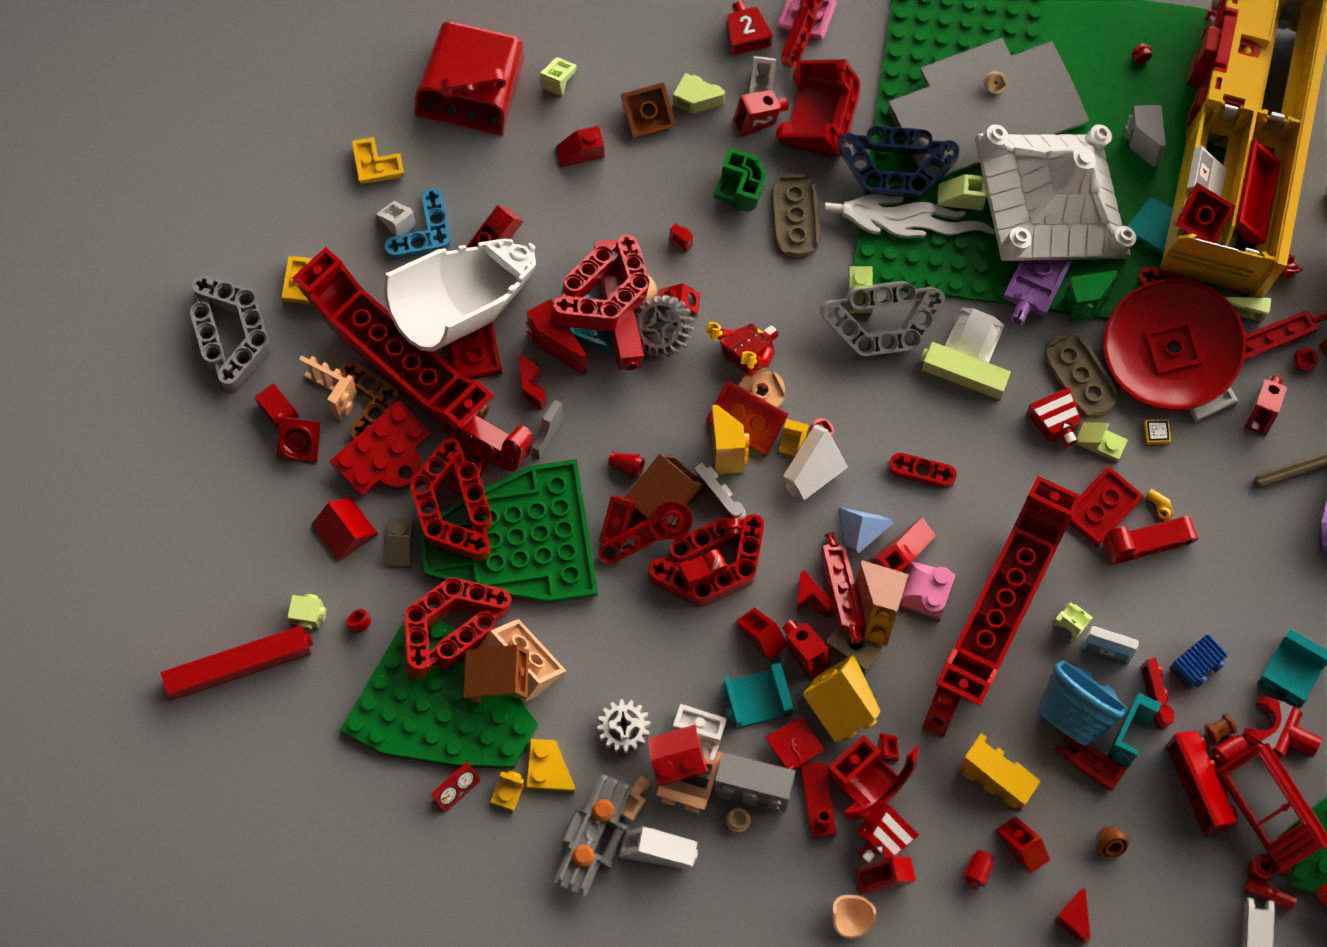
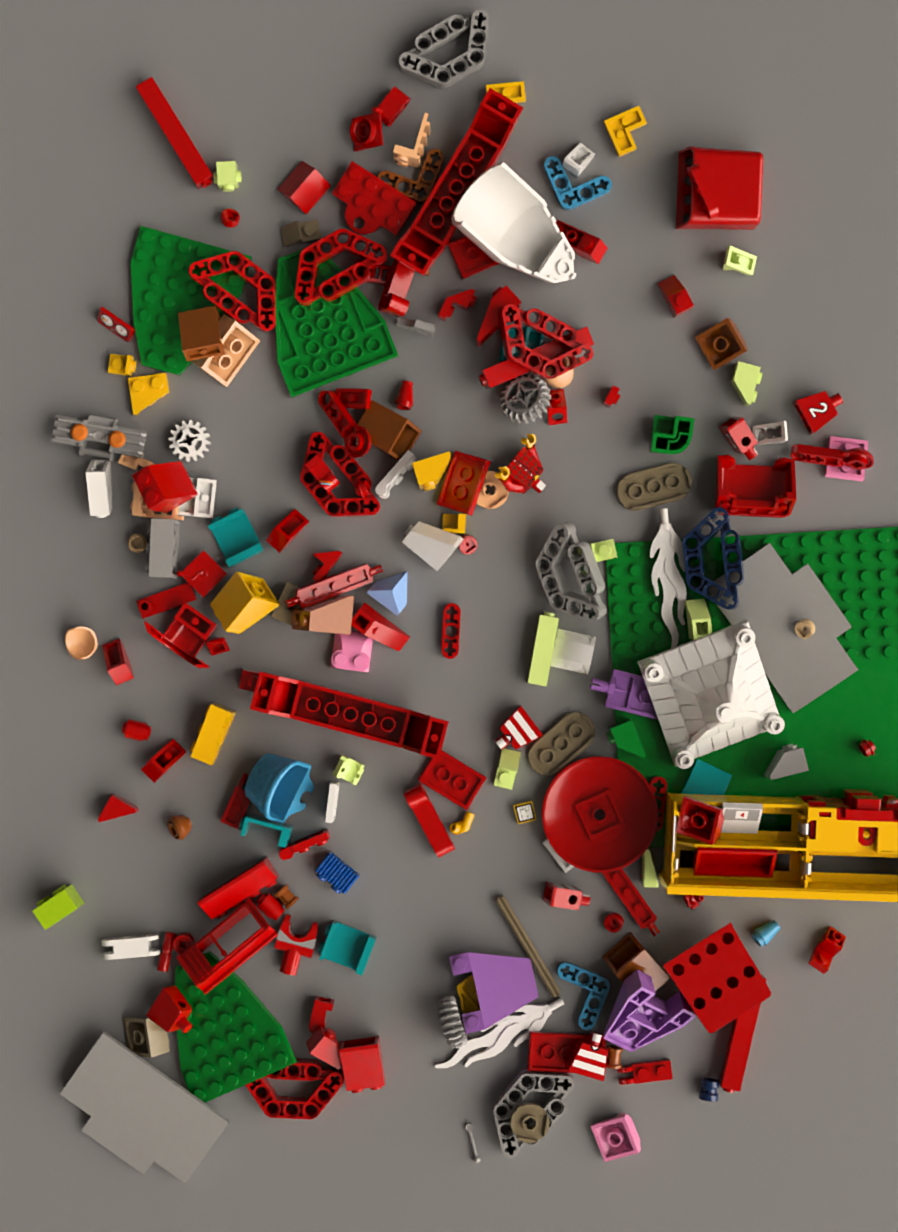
camera: 75 degrees right, 20 degrees up
(806, 648) = (276, 573): red torso -> none
(884, 832) = (146, 655): red torso -> none

